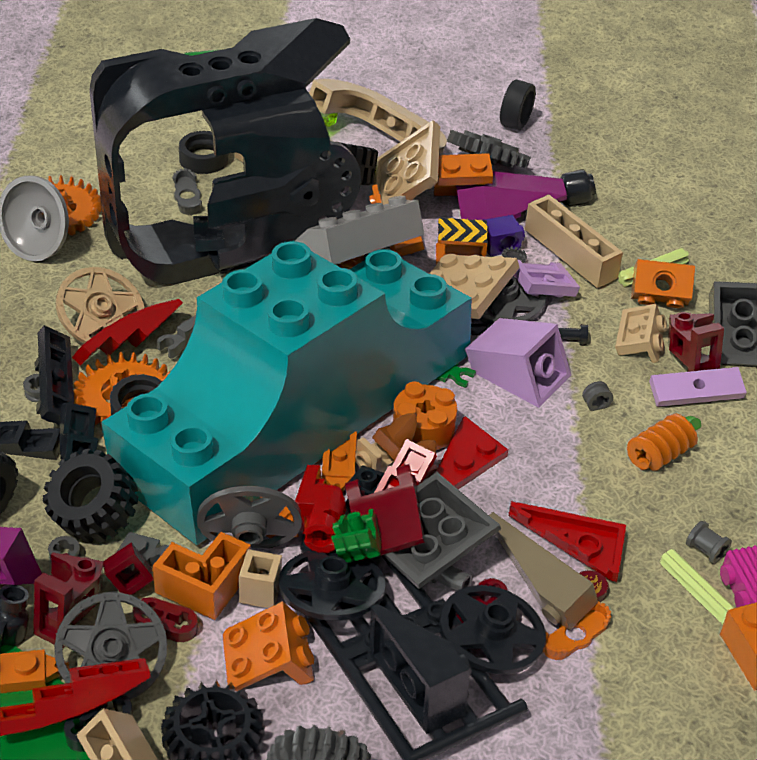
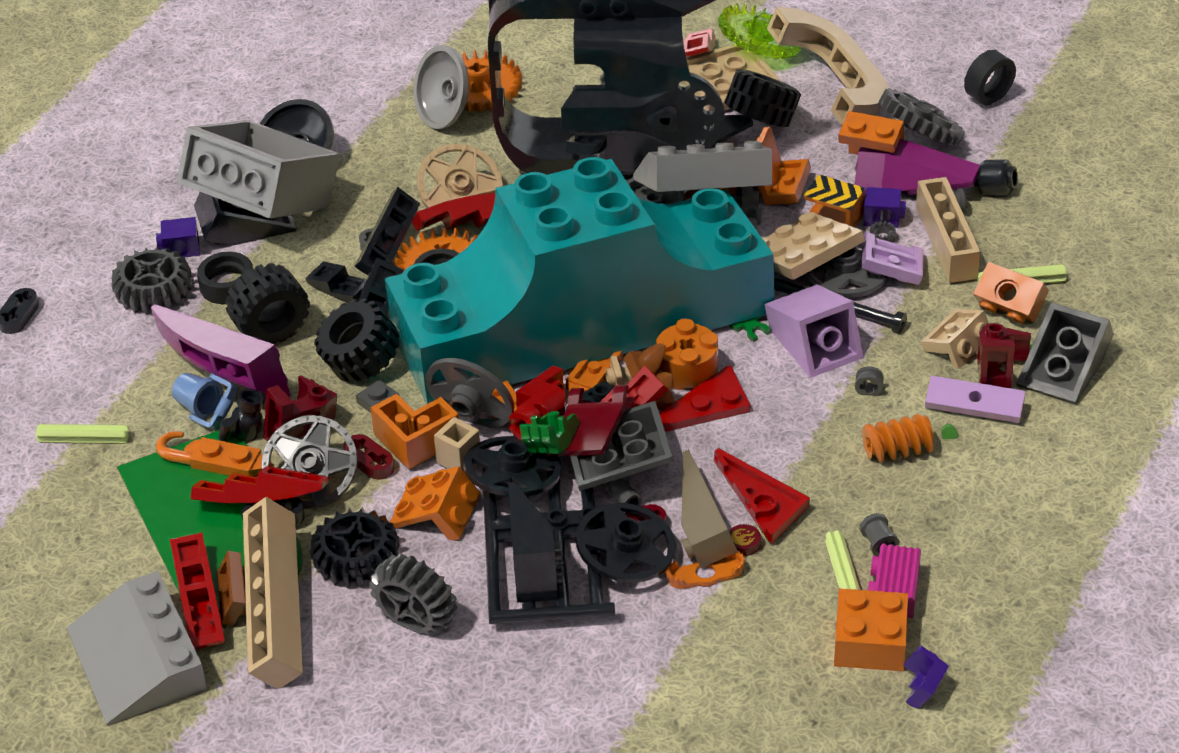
camera: 30 degrees right, 0 degrees up
(64, 542) = (321, 374): dark grey bush -> none
(132, 578) = (349, 412): dark red plate -> none
(409, 165) = (819, 118): tan plate -> none

